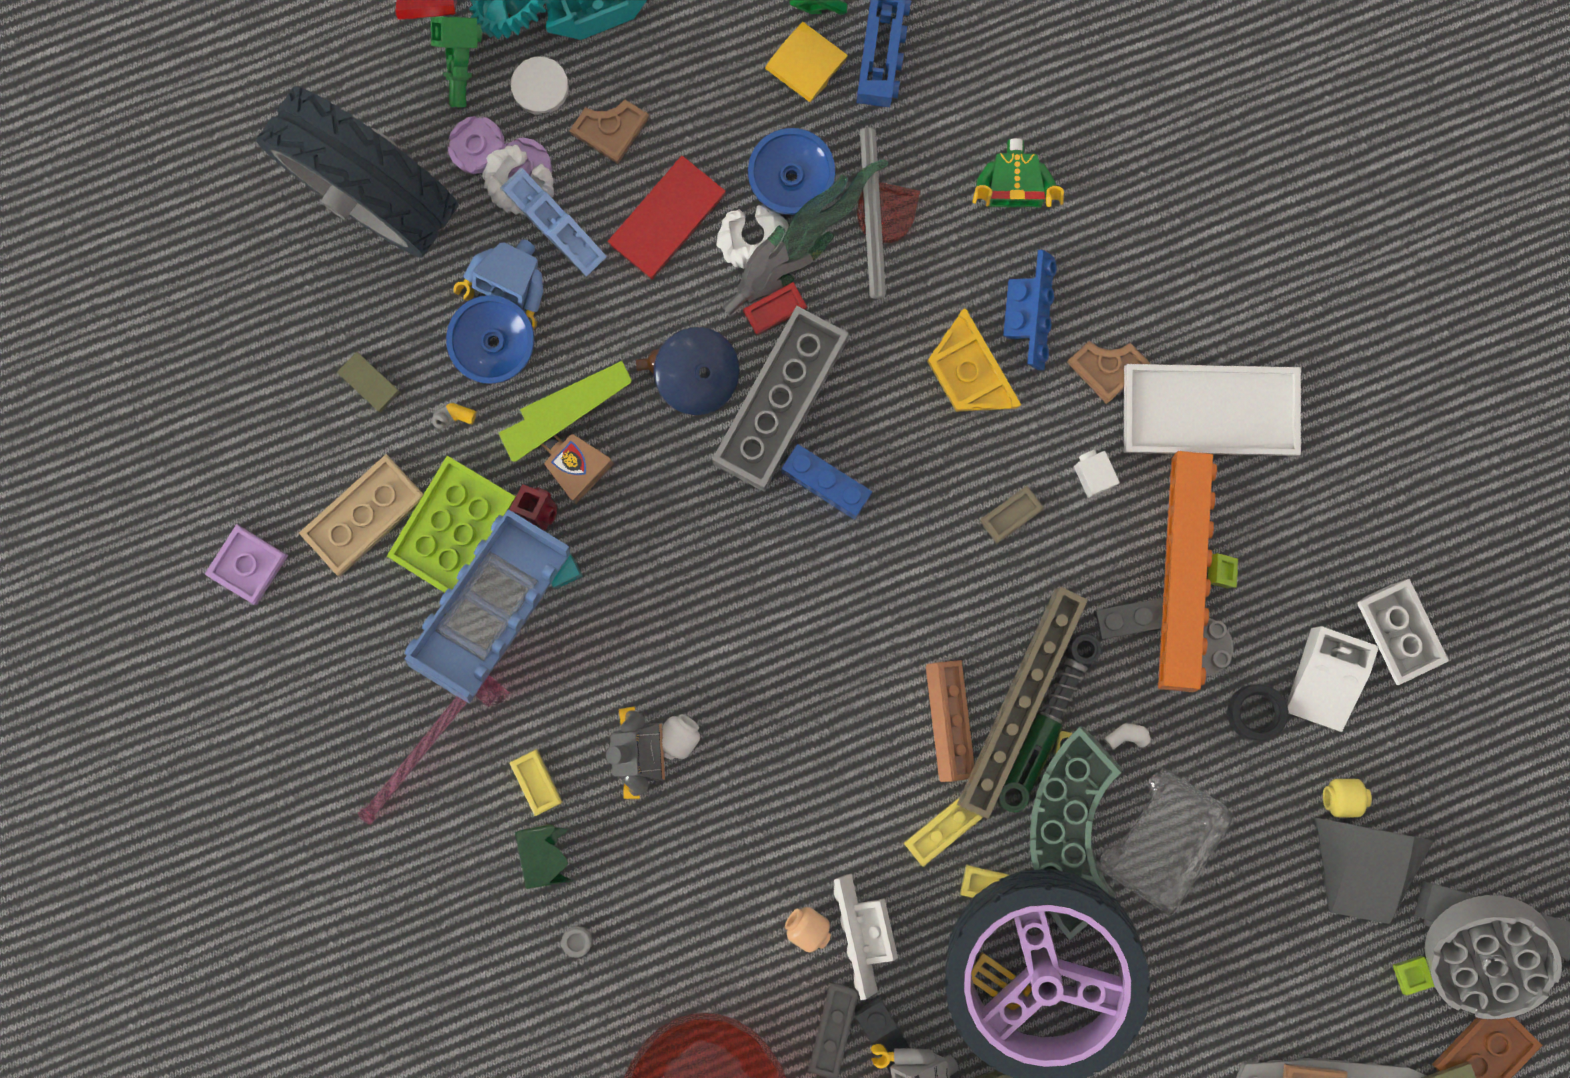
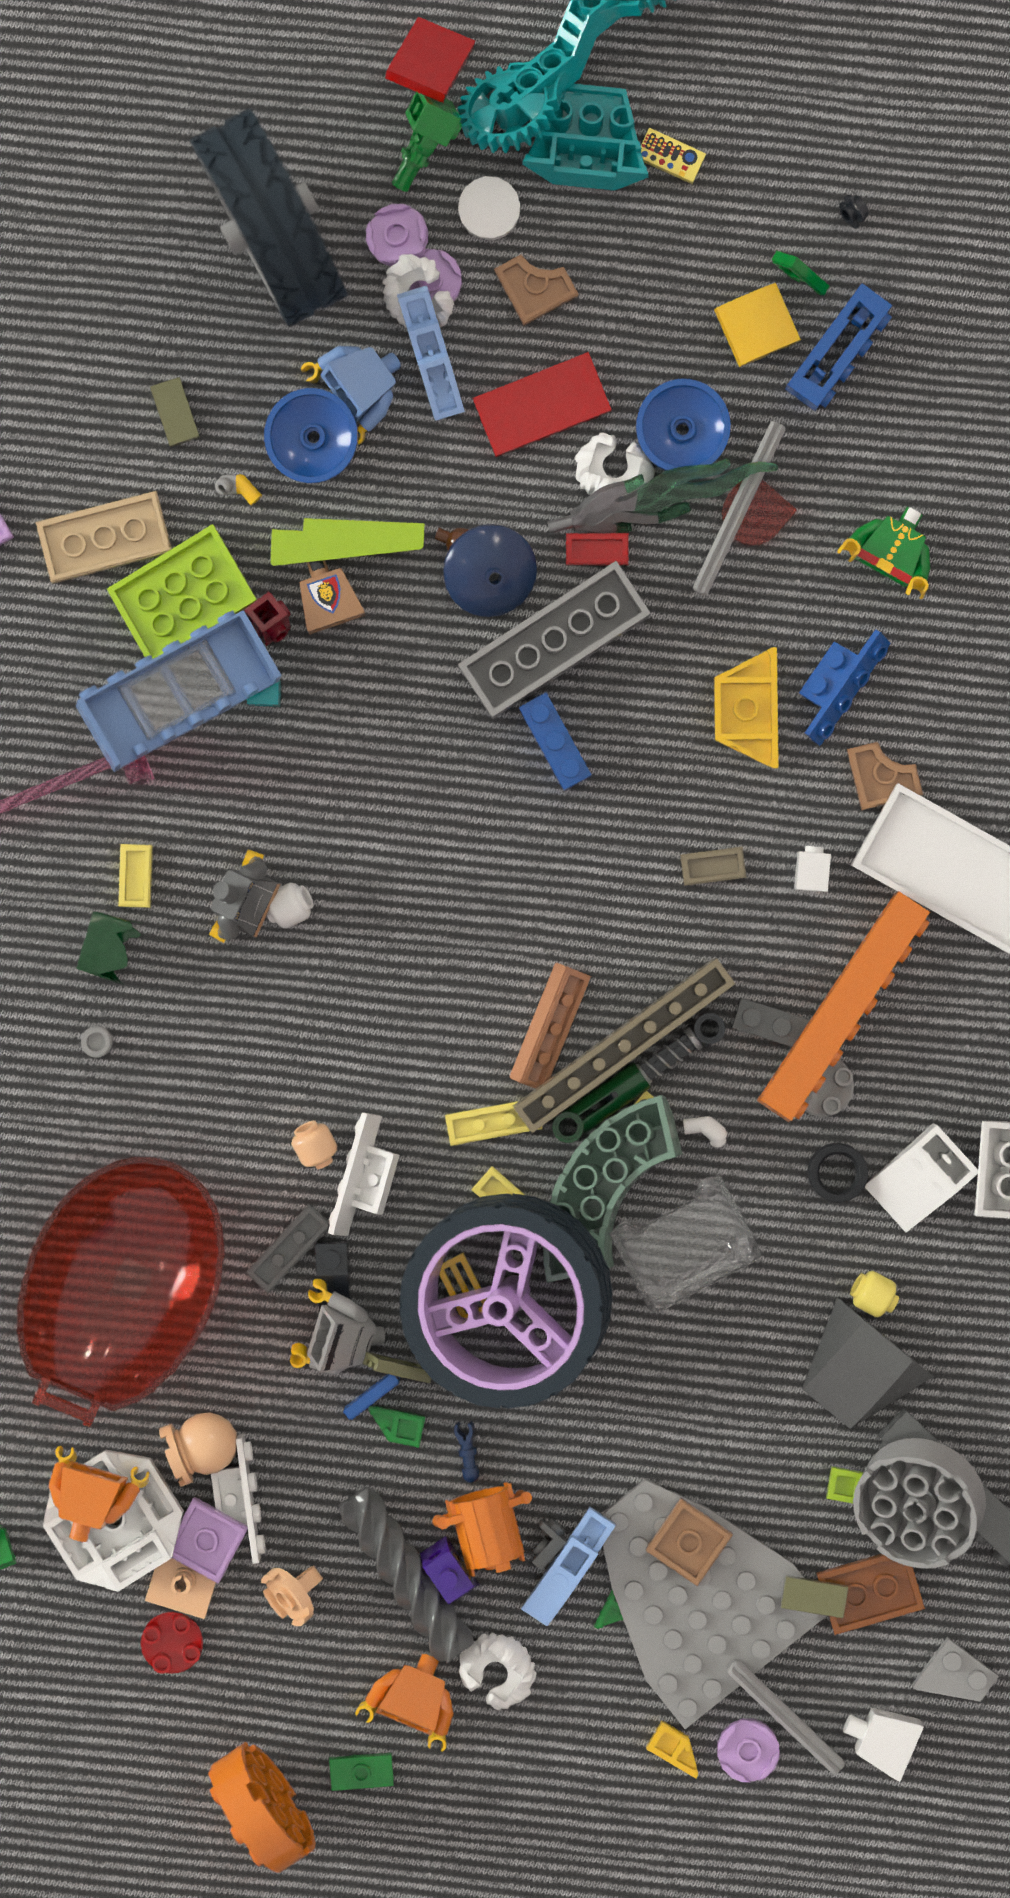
camera: 25 degrees right, 5 degrees up
(1223, 571) = (879, 1025): lime plate -> none

